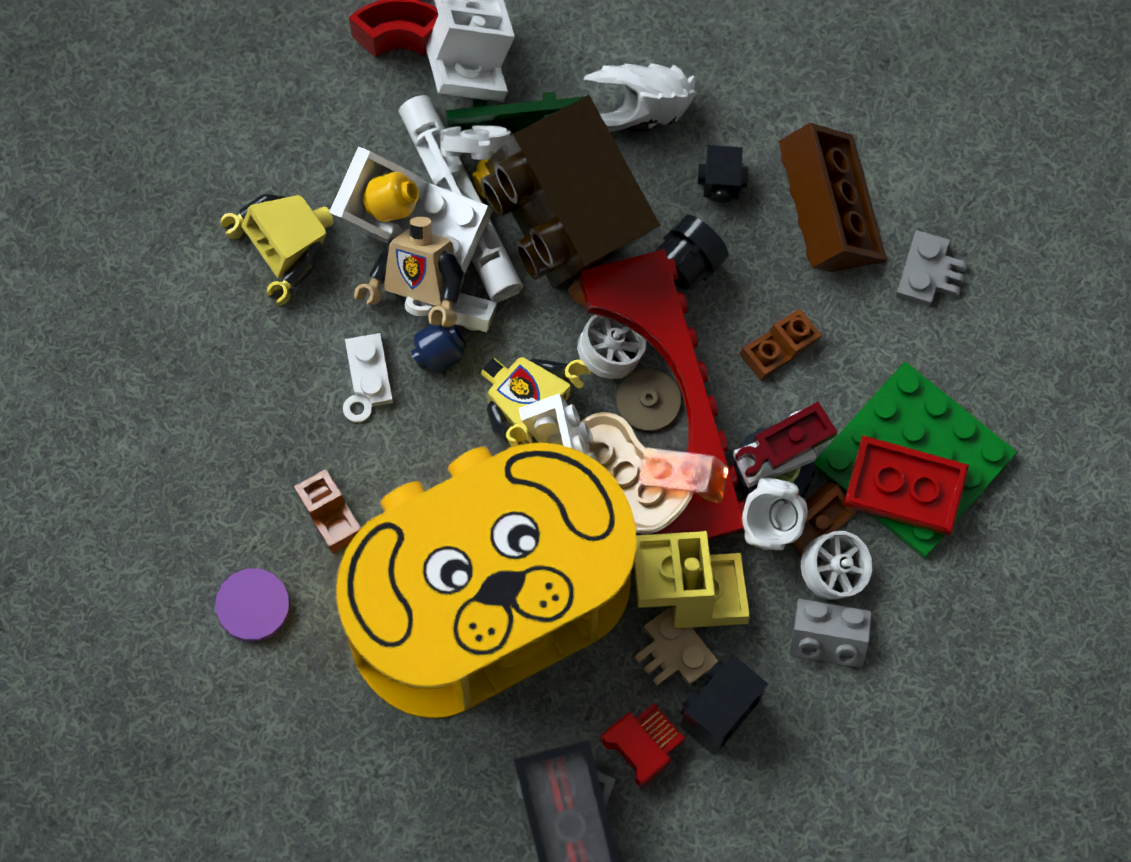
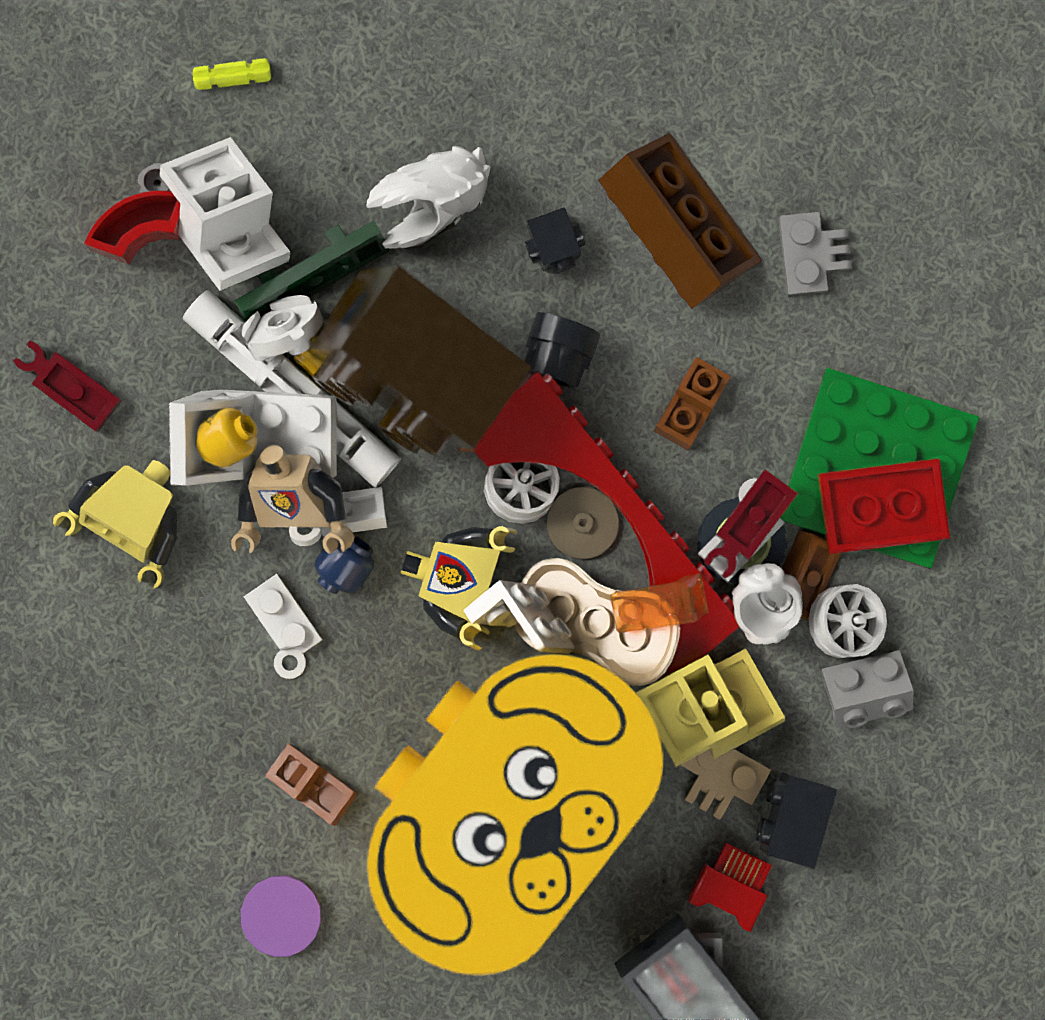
camera: 25 degrees left, 15 degrees up
(285, 126) = (70, 387): none -> dark red plate

